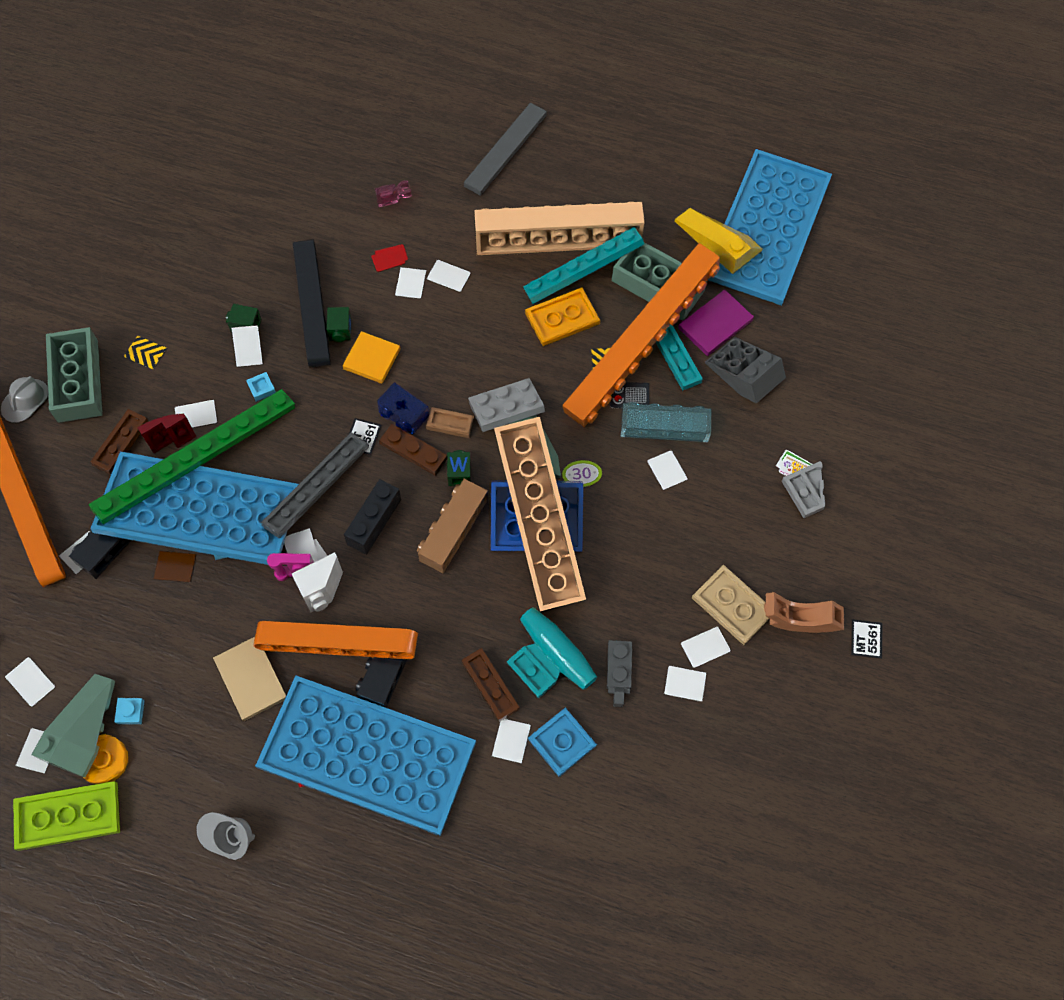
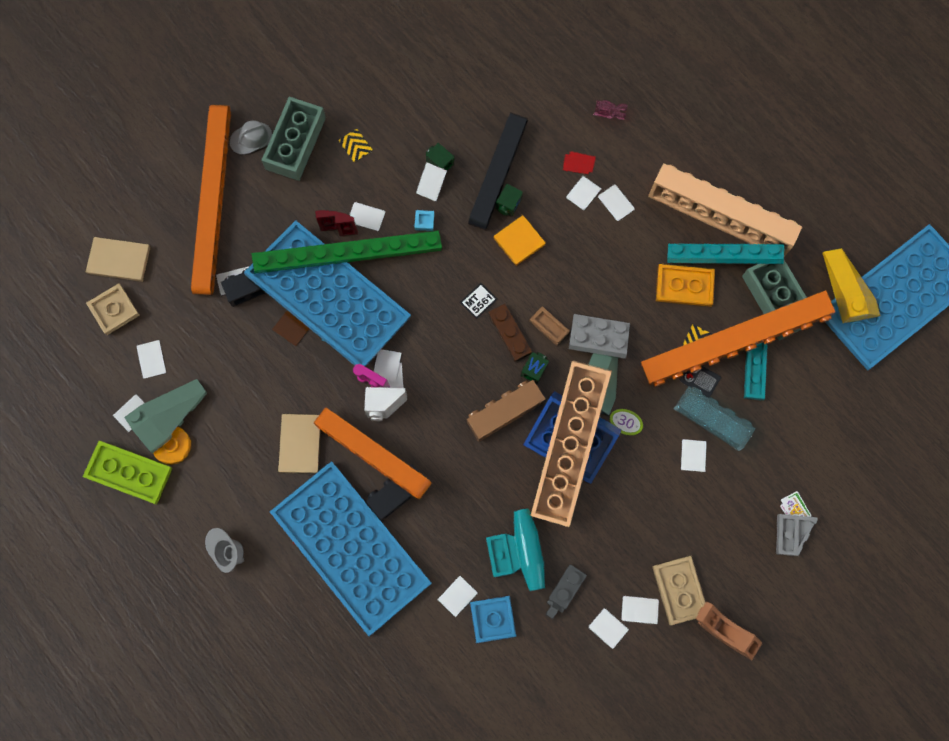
camera: 30 degrees right, 10 degrees up
(119, 440) = (300, 209): reddish brown plate -> none
(129, 711) = (206, 420): medium azure plate -> none
(314, 485) = (422, 322): dark grey tile -> none
(372, 516) = (450, 370): black brick -> none
(402, 408) = (519, 286): clear blue brick -> none
(490, 684) = (465, 547): reddish brown plate -> none
(505, 149) = (722, 115): dark grey tile -> none
(716, 322) = (804, 356): magenta tile -> none
(747, 369) = (805, 409): dark grey slope -> none
(866, 639) = (766, 675): sticker -> none

